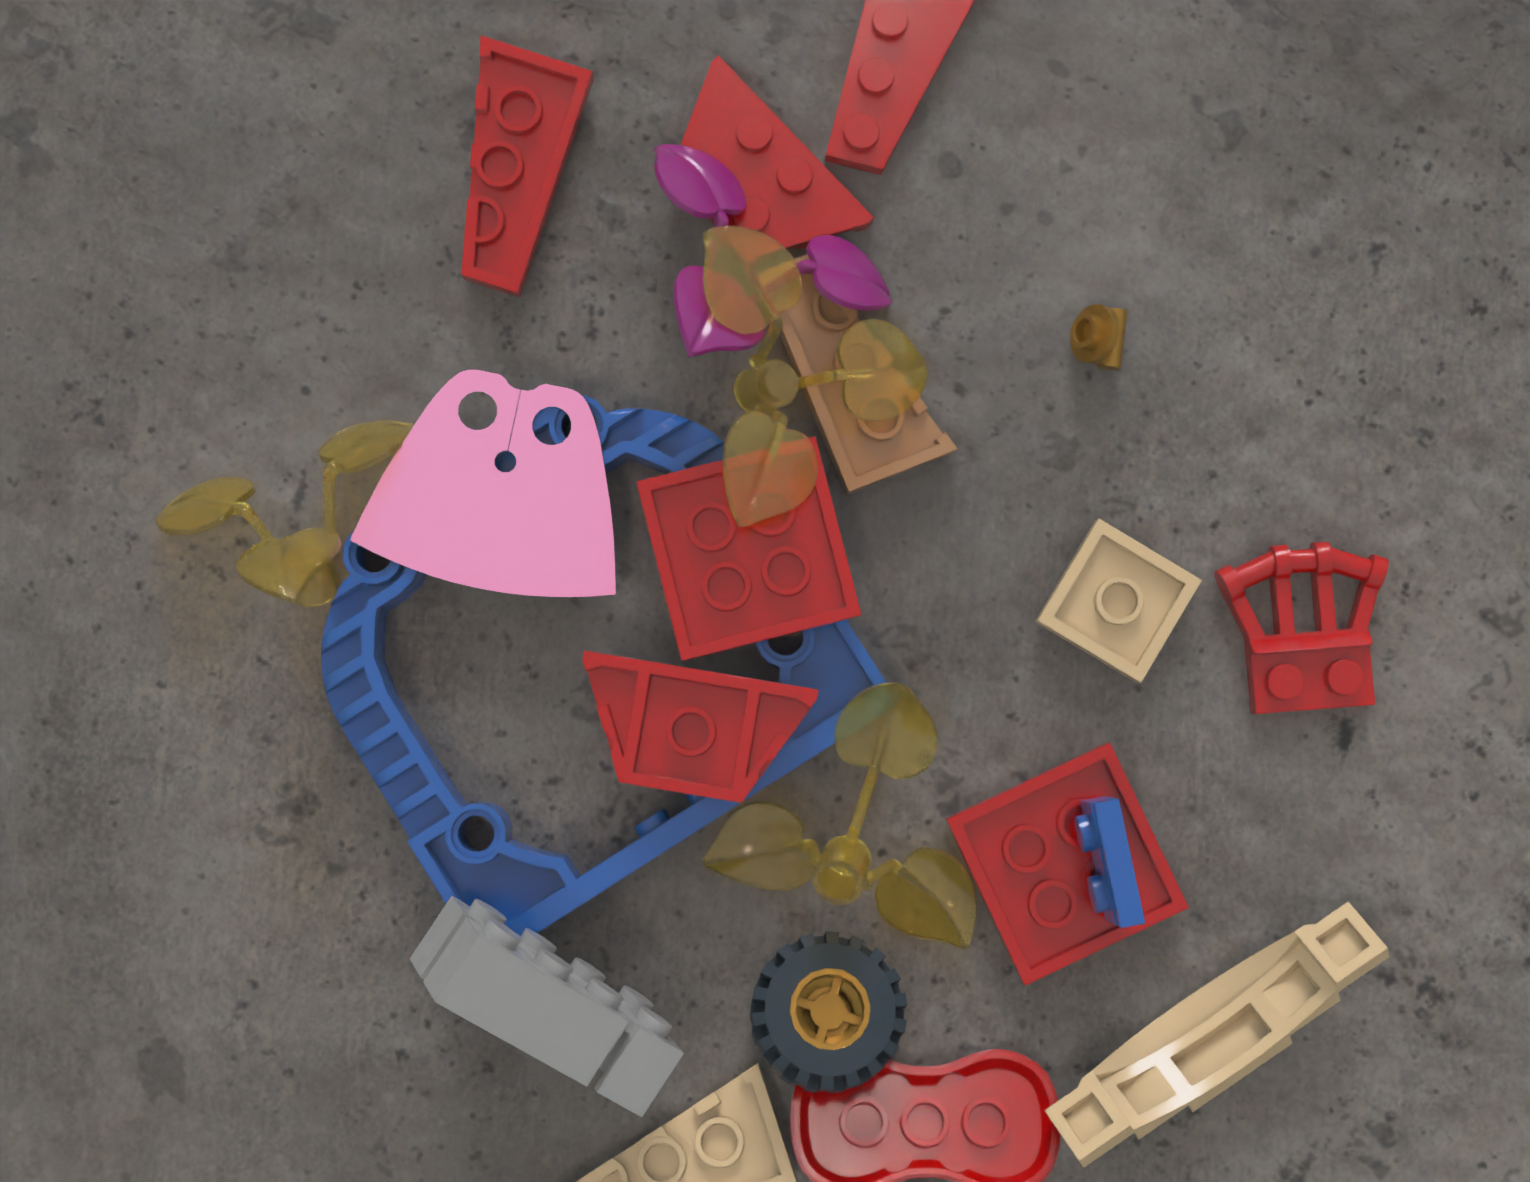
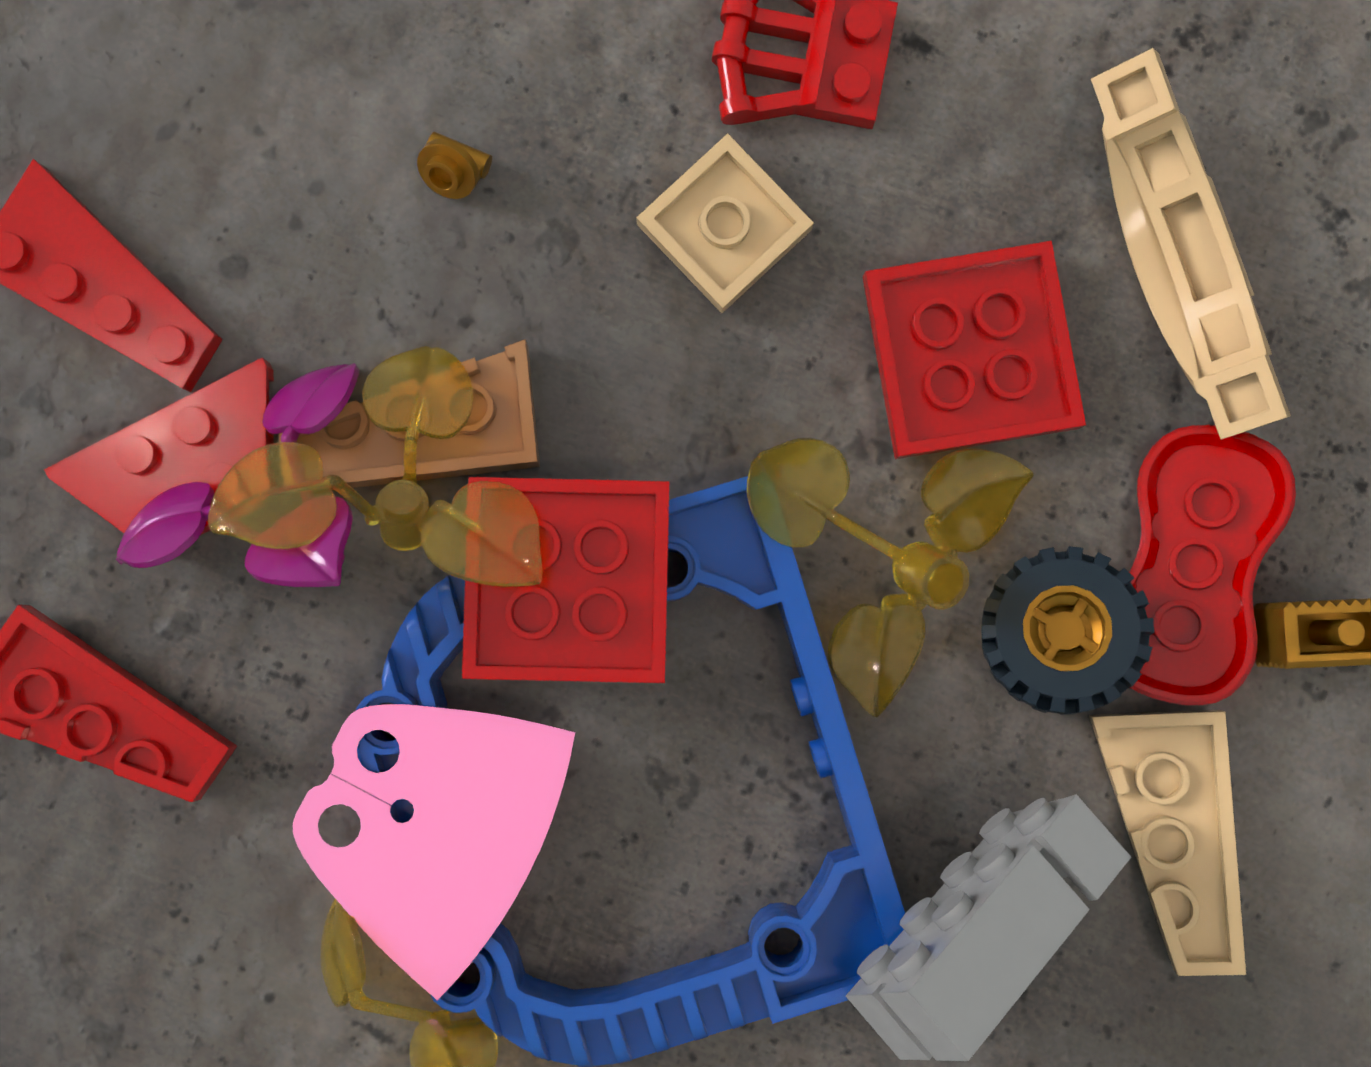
camera: 75 degrees left, 0 degrees up
(692, 725) = (735, 690): red wing -> none
(1115, 884) = (1012, 301): blue plate -> none

